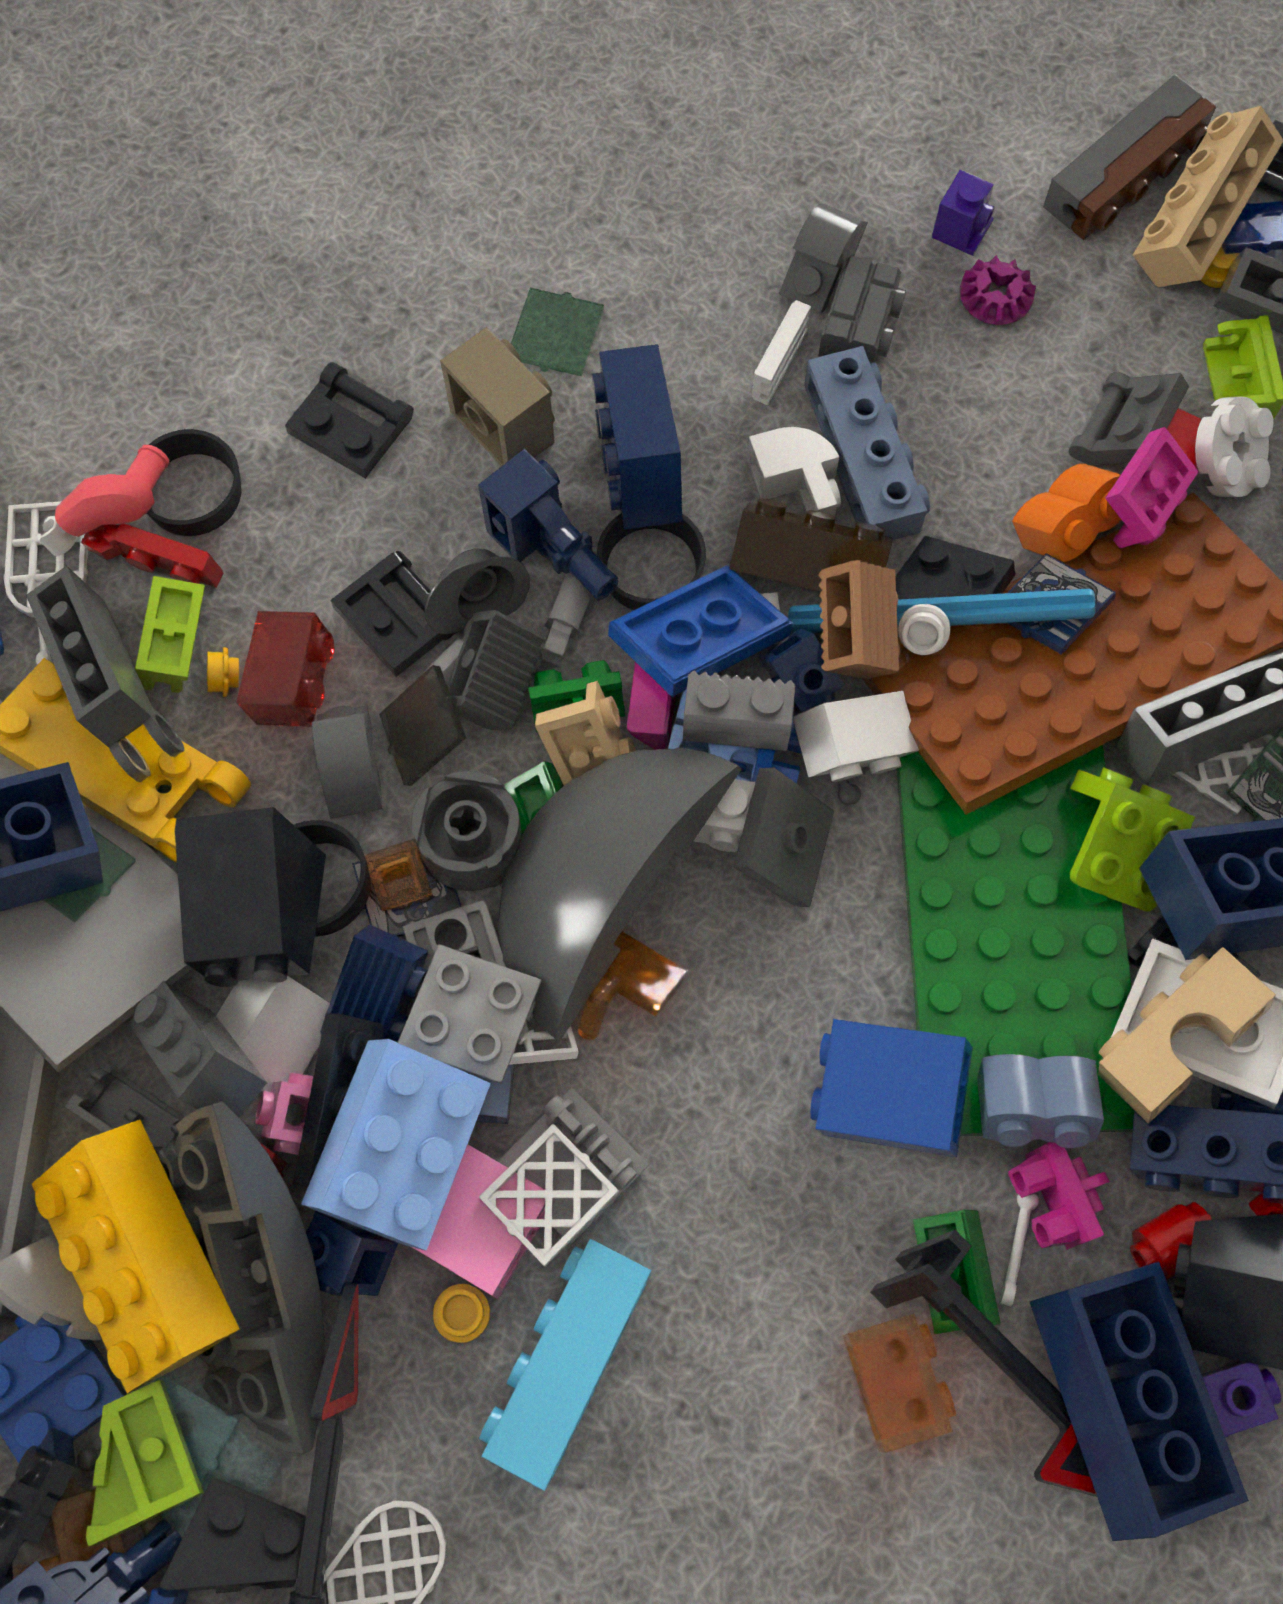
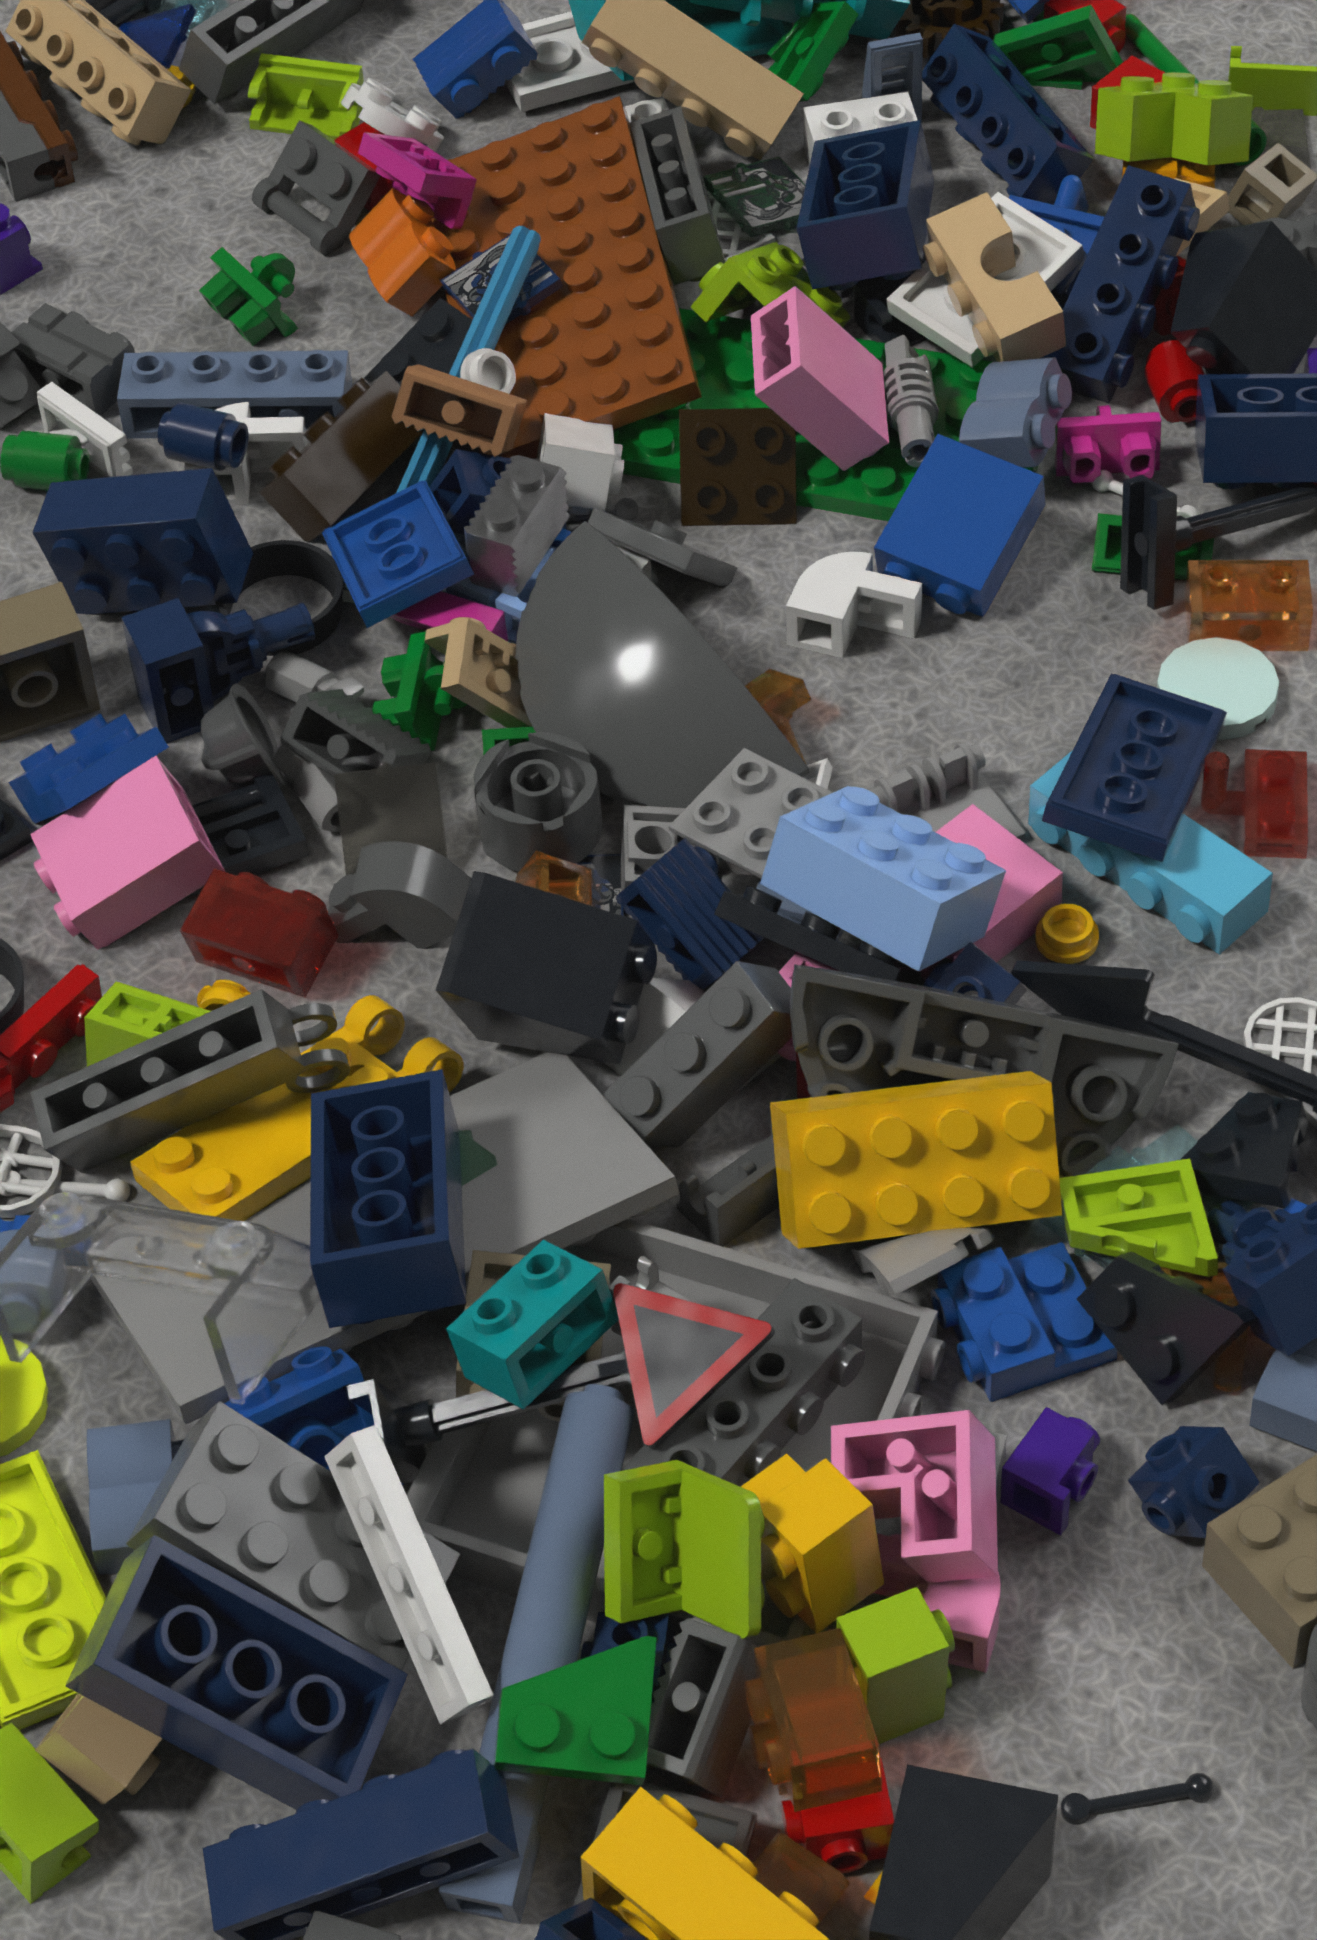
camera: 70 degrees left, 20 degrees down
(334, 546) = (124, 854): none -> bright pink brick
(410, 486) = (95, 759): none -> blue plate
(516, 1226) = (951, 769): white window -> none
(631, 1331) = (1135, 767): none -> dark blue tile
(669, 1462) = (1271, 800): none -> clear red plate
(741, 335) = (42, 458): none -> green brick
(765, 436) = (203, 437): none -> dark blue brick
(784, 1000) = (845, 593): none -> white brick
(796, 1377) = (1225, 677): none -> light aqua tile
(910, 871) = (736, 467): none -> dark brown hinge
(992, 417) = (260, 289): none -> green hips
(994, 306) = (122, 259): magenta gear -> none
(996, 909) = (819, 379): none -> bright pink brick
(1035, 997) = (910, 399): none -> light grey hinge

